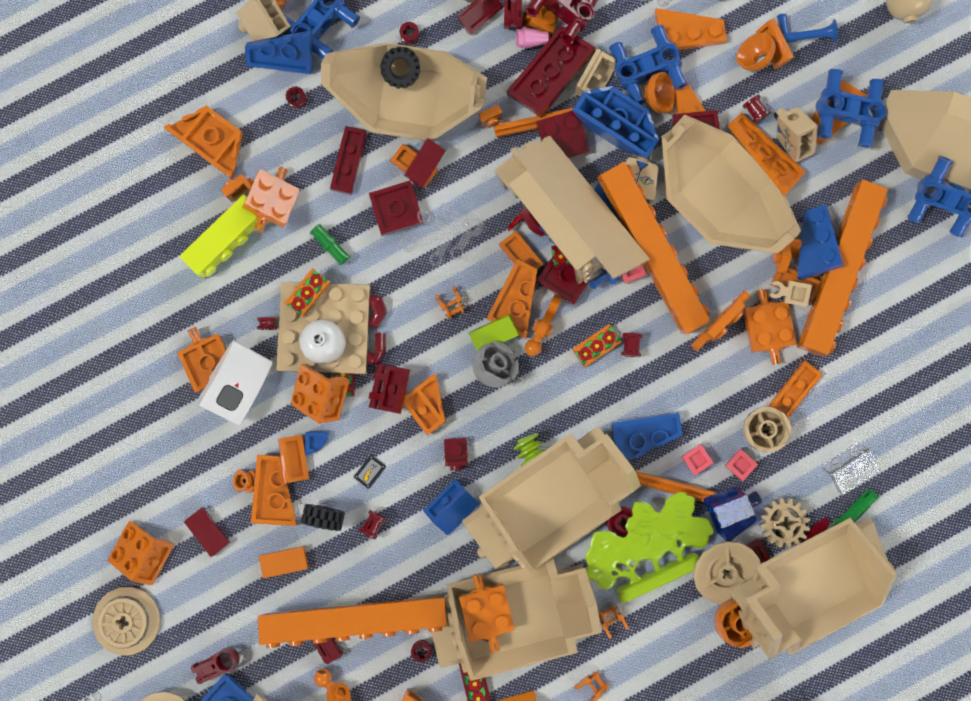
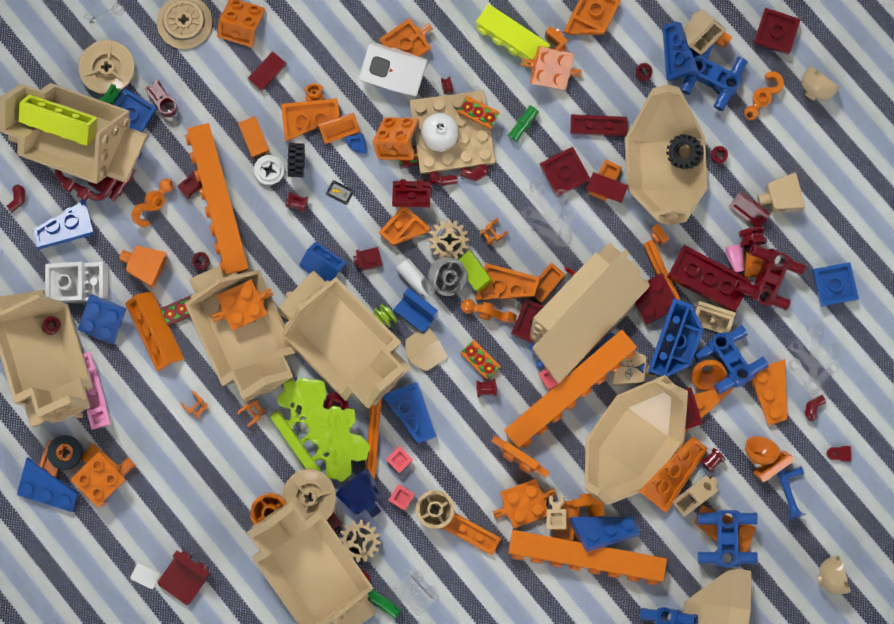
camera: 70 degrees right, 5 degrees down
(316, 552) = (265, 162): none -> white gear
(442, 355) = (448, 232): none -> tan gear
(489, 402) = (415, 278): none -> white piece
(528, 409) = (416, 311): none -> blue panel
(573, 407) = (424, 350): none -> tan slope

